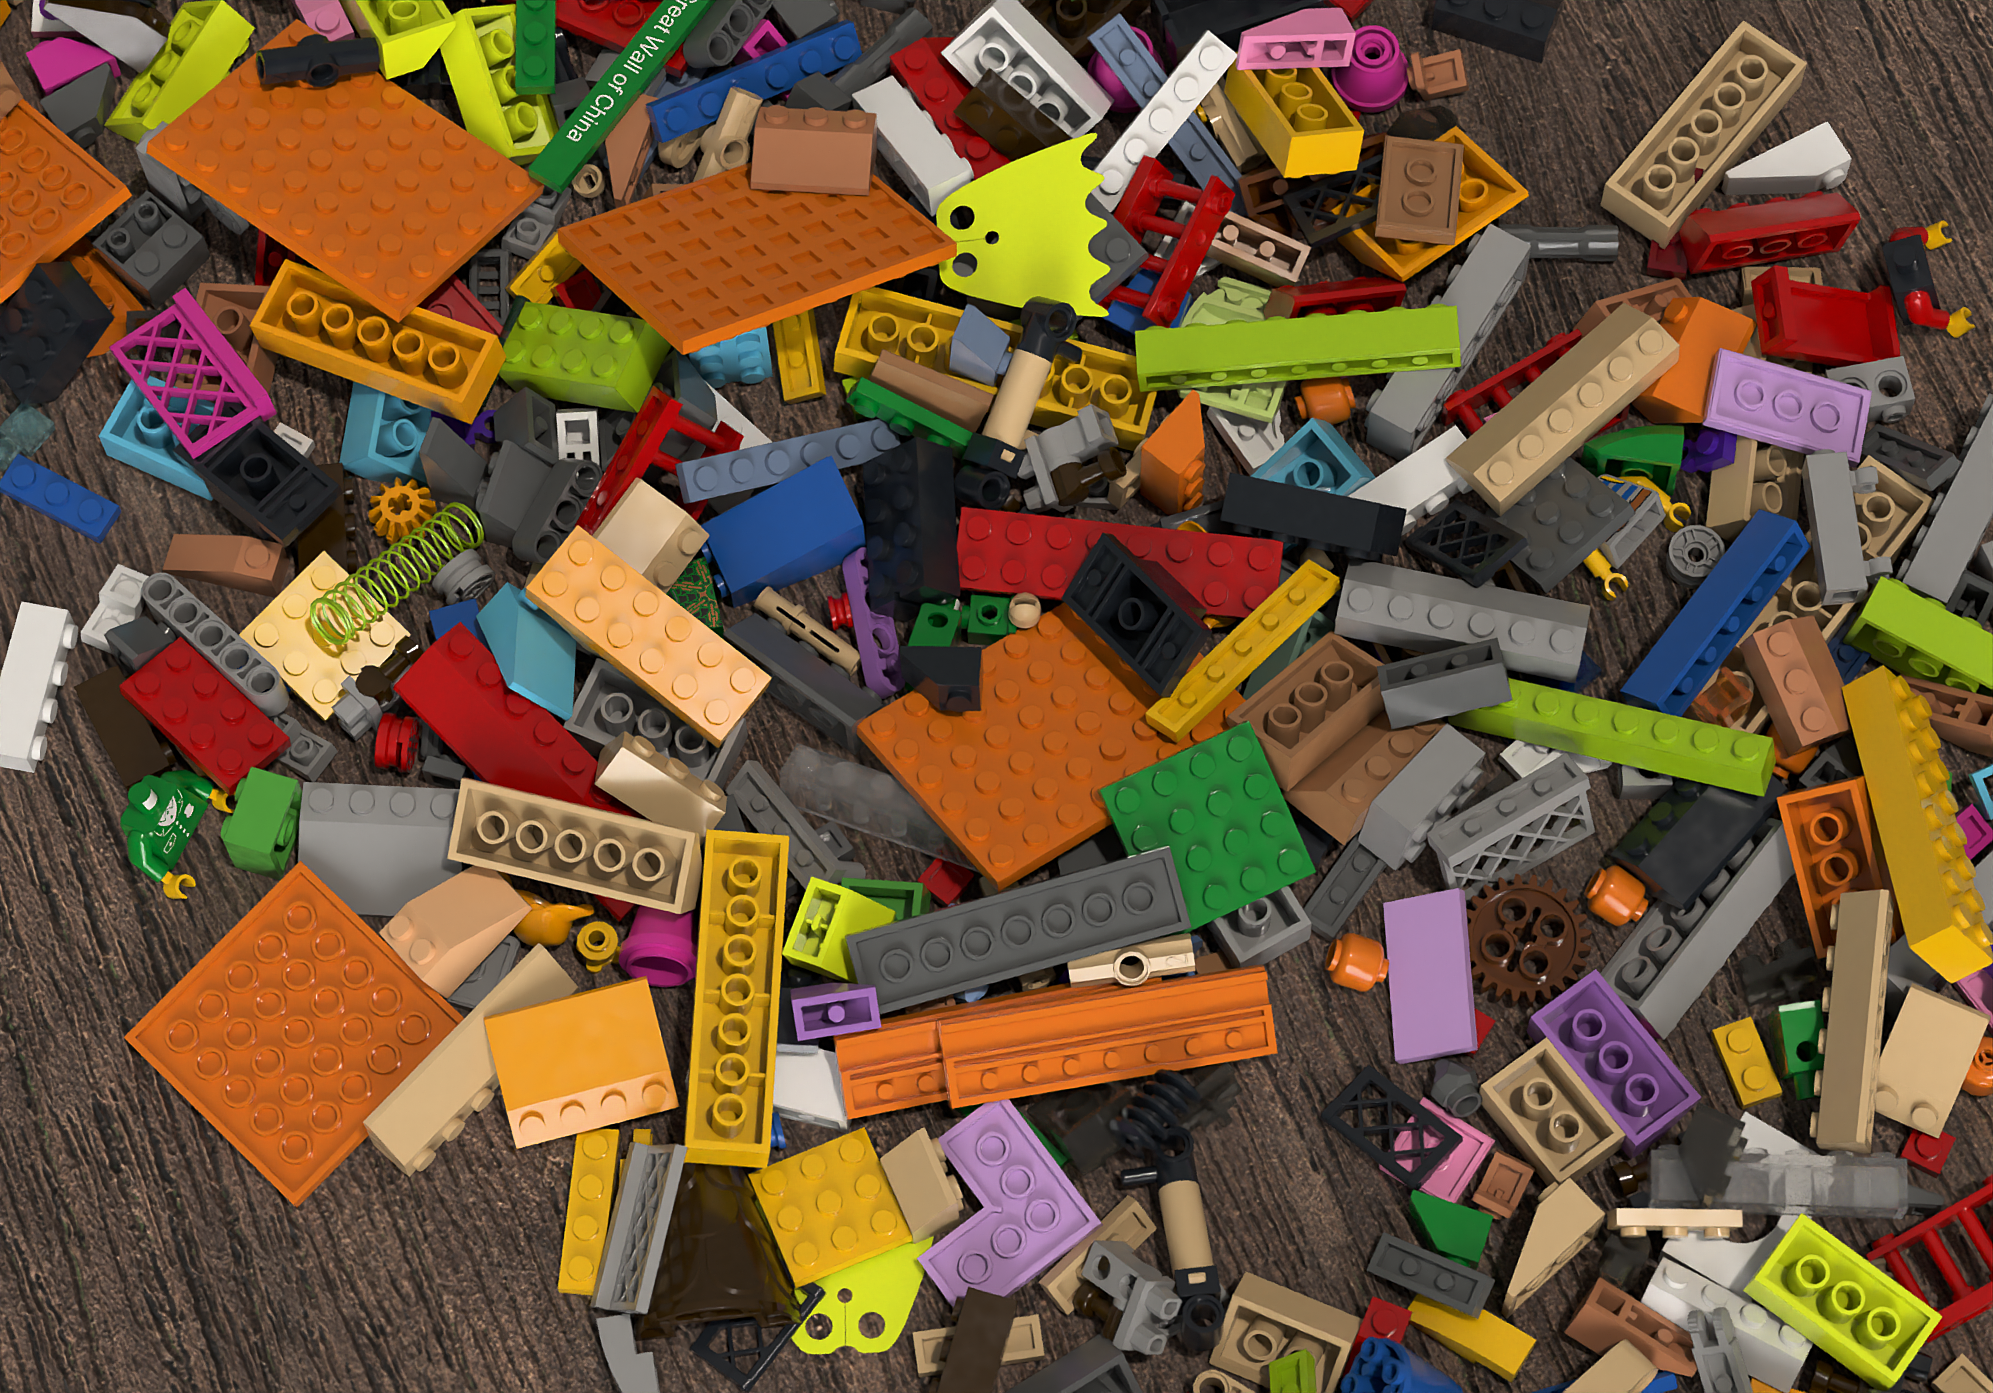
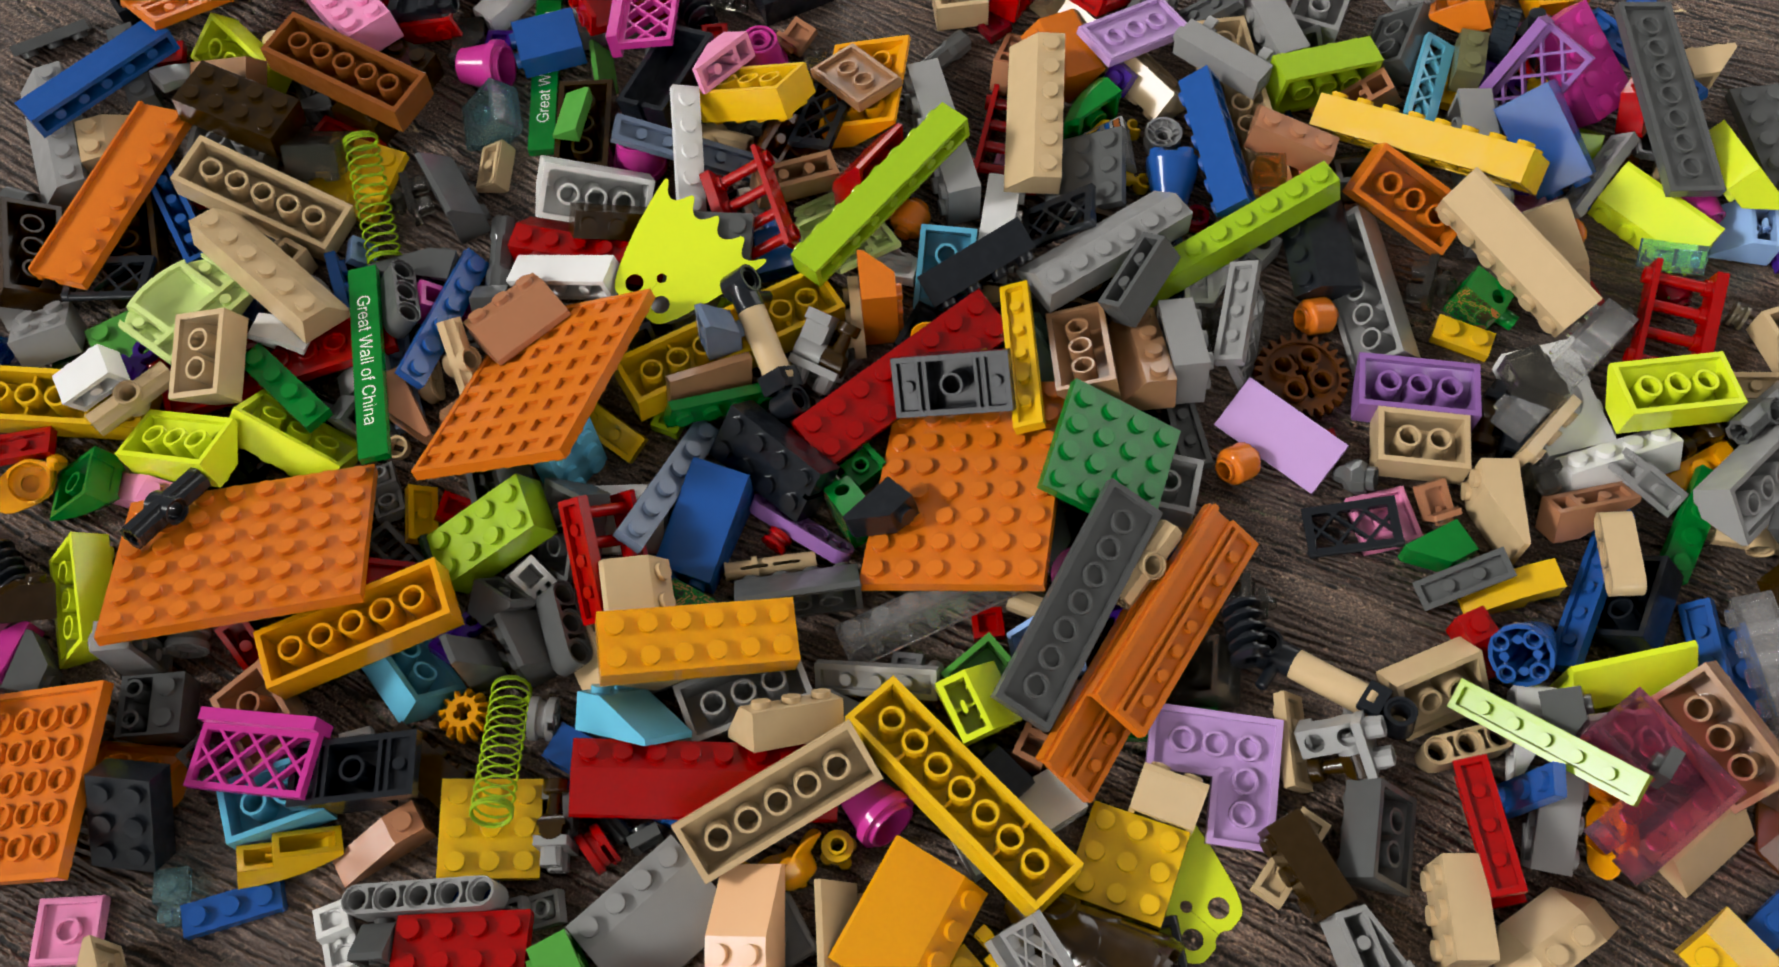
camera: 45 degrees left, 5 degrees down
(141, 494) = (287, 855): none -> yellow slope
(834, 1009) = (1027, 745): medium lavender slope -> none
(1024, 610) = (883, 445): tan hinge -> none
(1615, 671) = (1201, 212): none -> red bush
(1632, 615) = (1172, 171): none -> blue cone

